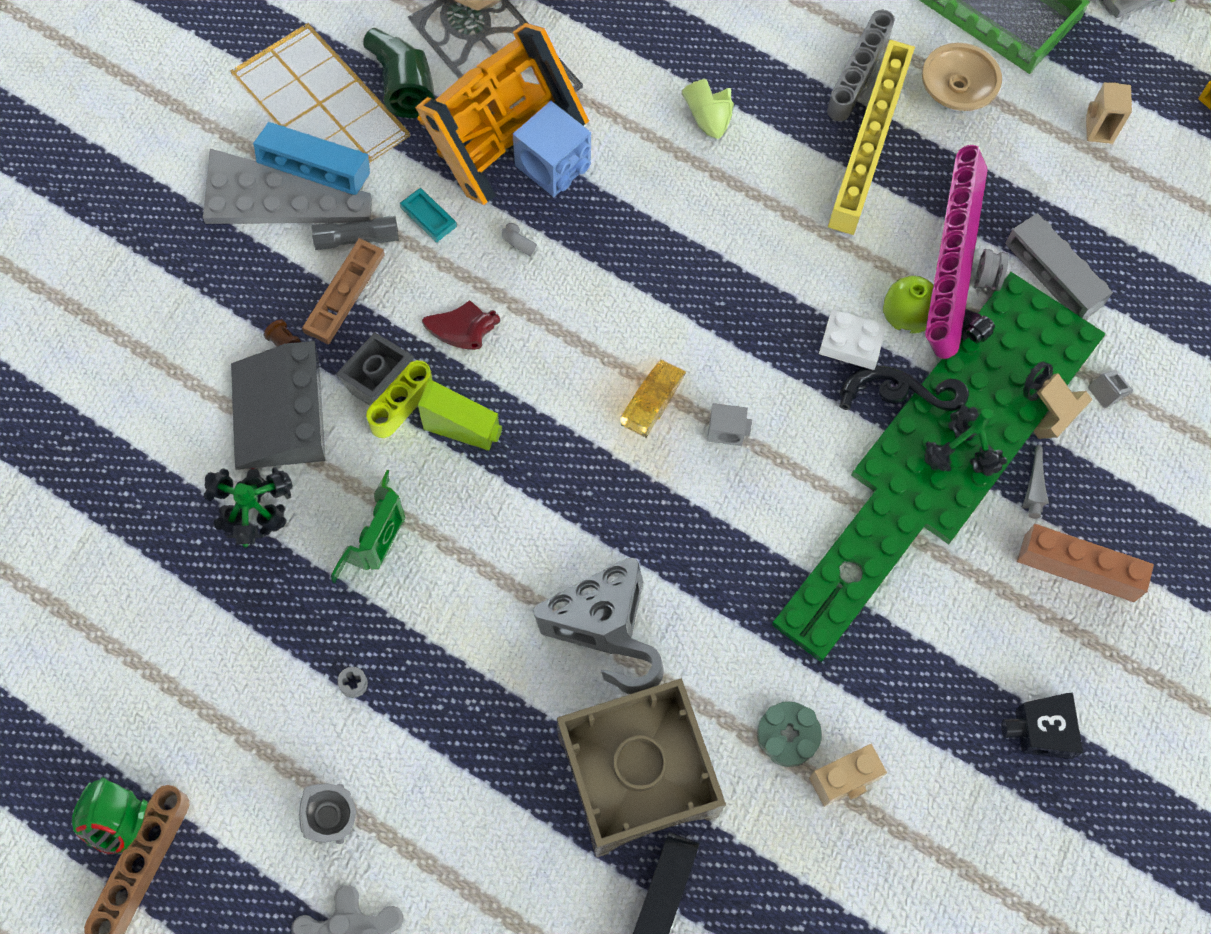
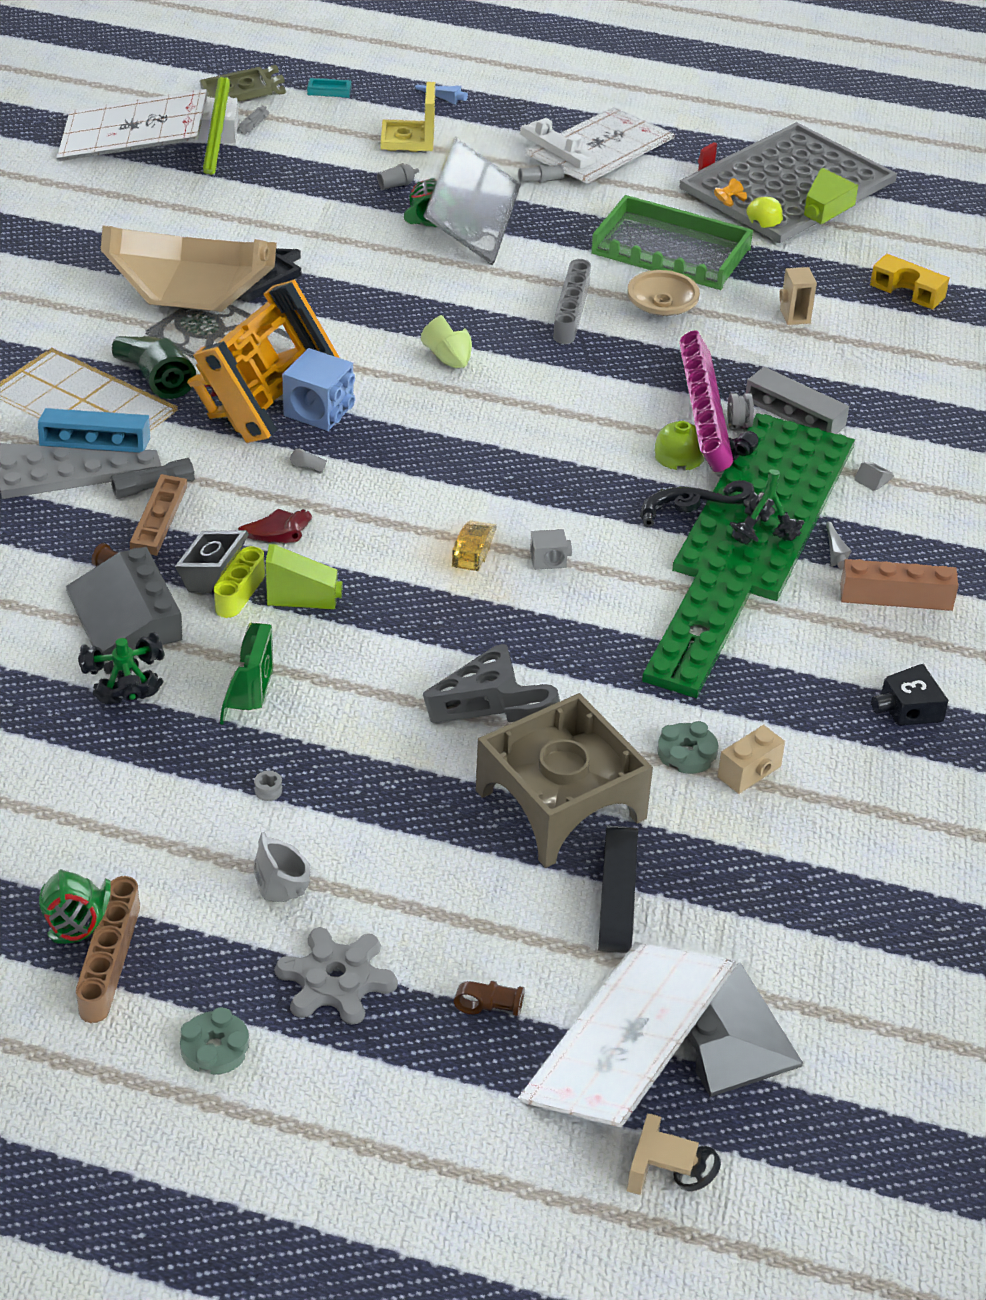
camera: 15 degrees left, 25 degrees down
(428, 215) = (216, 458): teal tile -> none
(852, 339) = (637, 476): white plate -> none
(871, 137) = (601, 343): light yellow brick -> none
(1061, 402) = (830, 476): tan piece -> none

